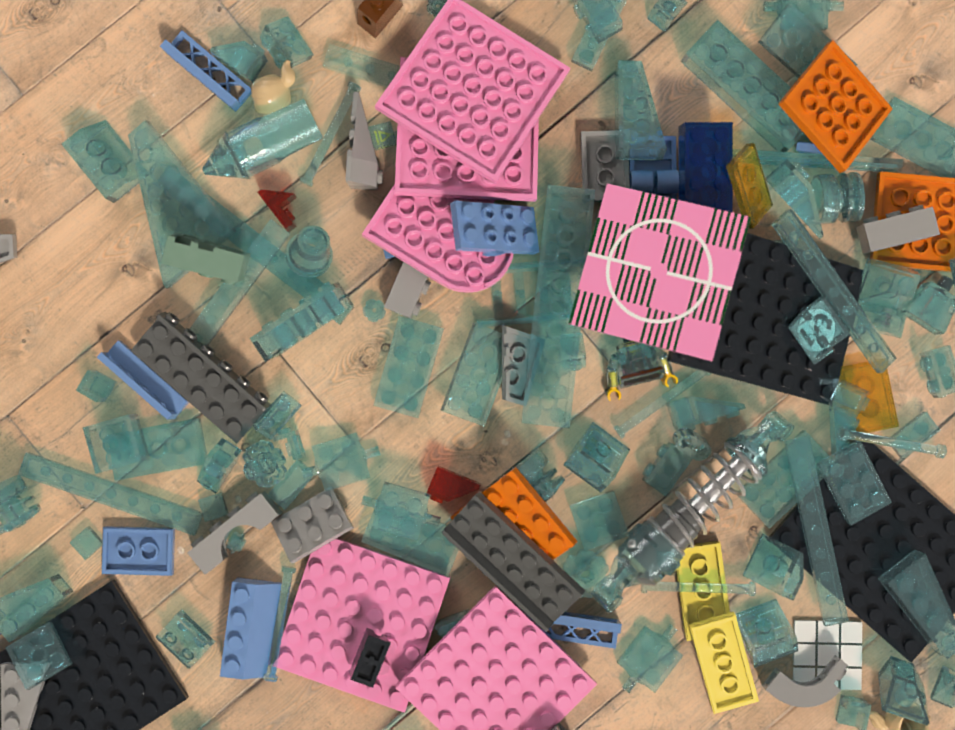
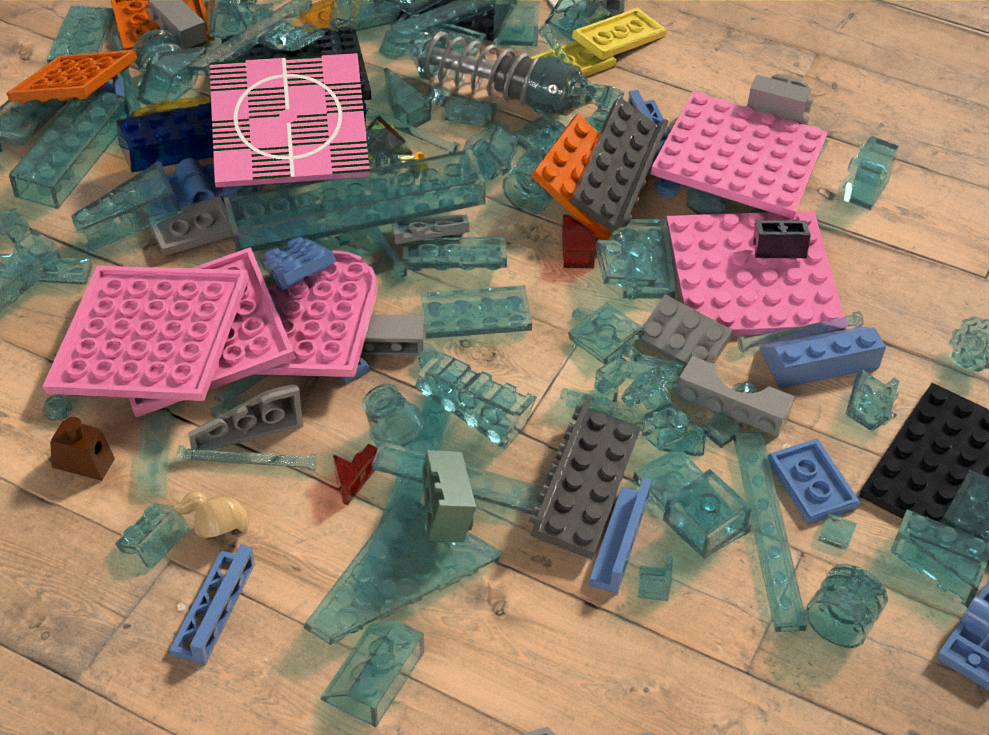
camera: 115 degrees left, 40 degrees down
(242, 58) = (187, 566): clear light blue slope -> none
(263, 142) = (282, 496): clear light blue piece -> none
(649, 658) = (648, 76): clear light blue plate -> none

